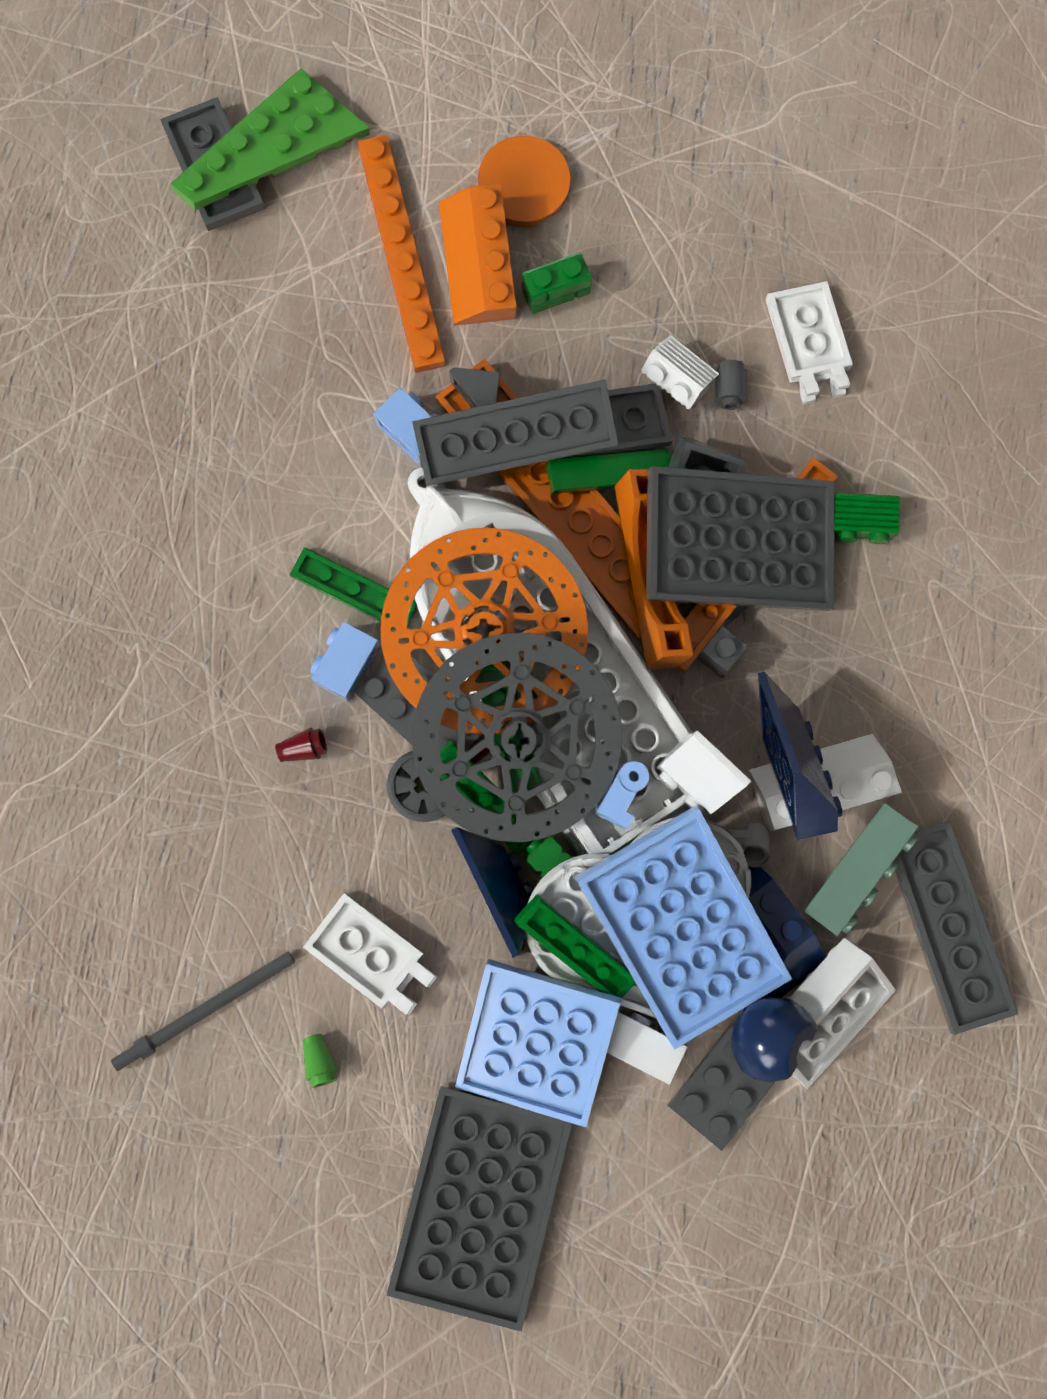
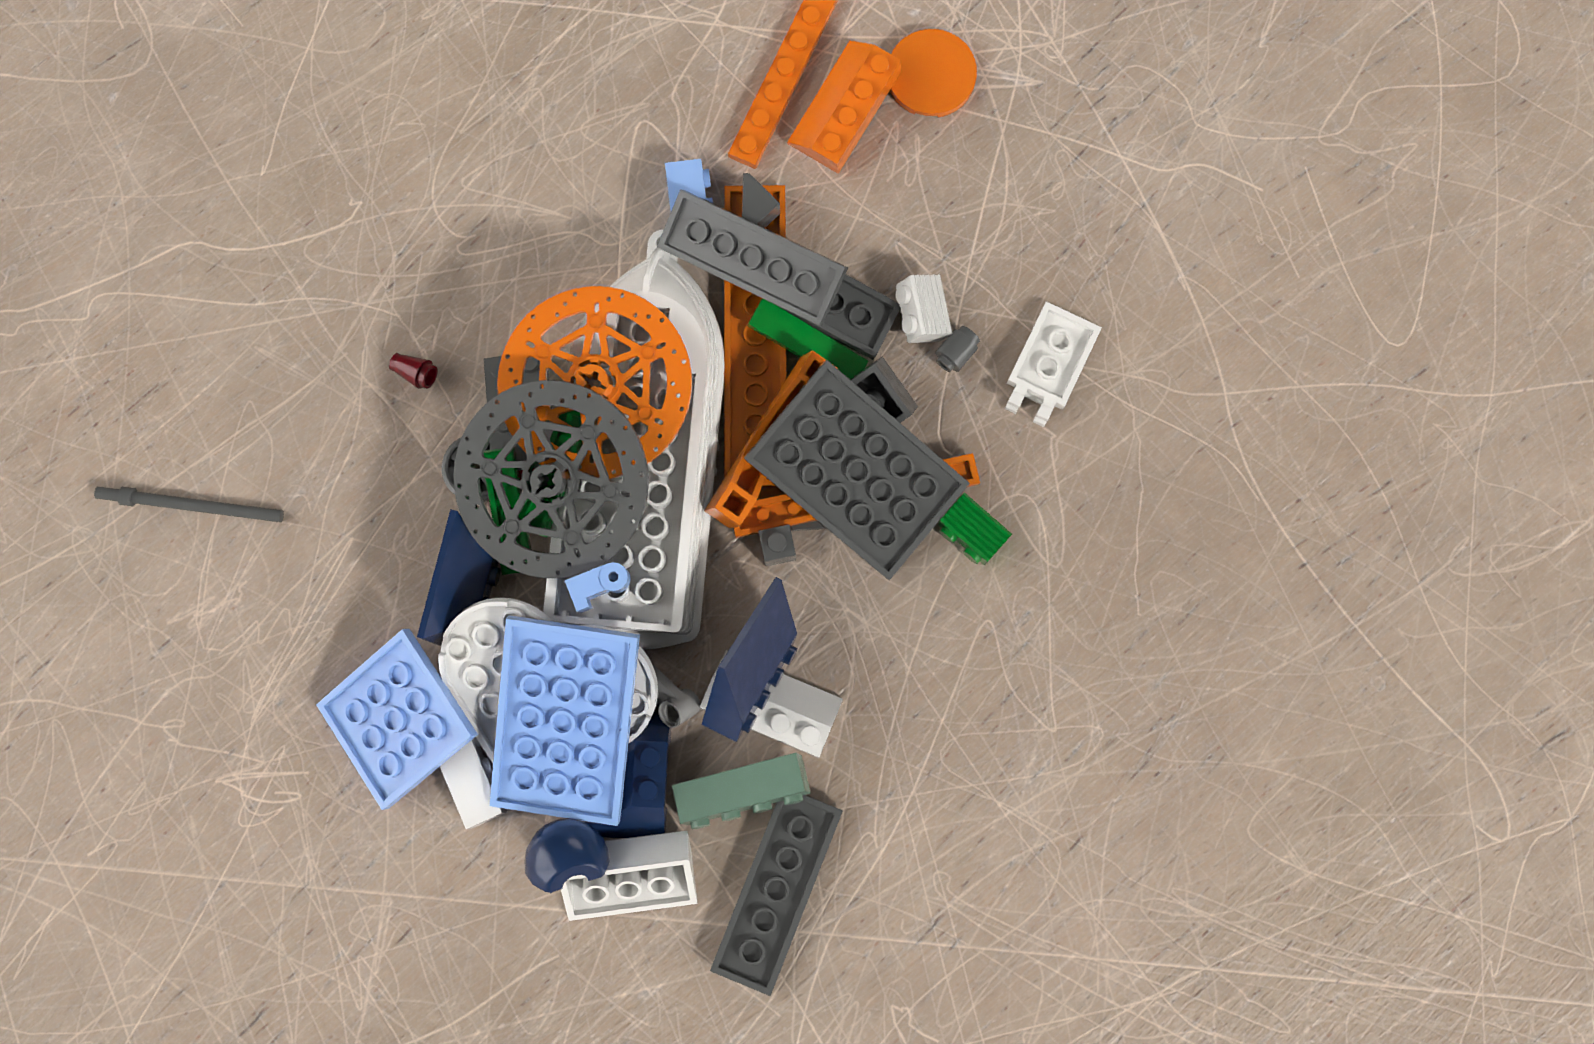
camera: 45 degrees right, 0 degrees up
(318, 1062) = (236, 607): bright green cone -> none
(343, 584) = (542, 274): green tile -> none
(344, 661) = (490, 331): light blue brick -> none
(368, 955) = (336, 560): white tile -> none
(479, 1209) = (261, 805): dark grey plate -> none
(544, 856) = (515, 586): green brick -> none
(556, 283) = (887, 169): green brick -> none
(574, 947) = (472, 668): green tile -> none
(701, 773) = (661, 612): white slope -> none
(718, 1094) = (495, 871): dark grey plate -> none

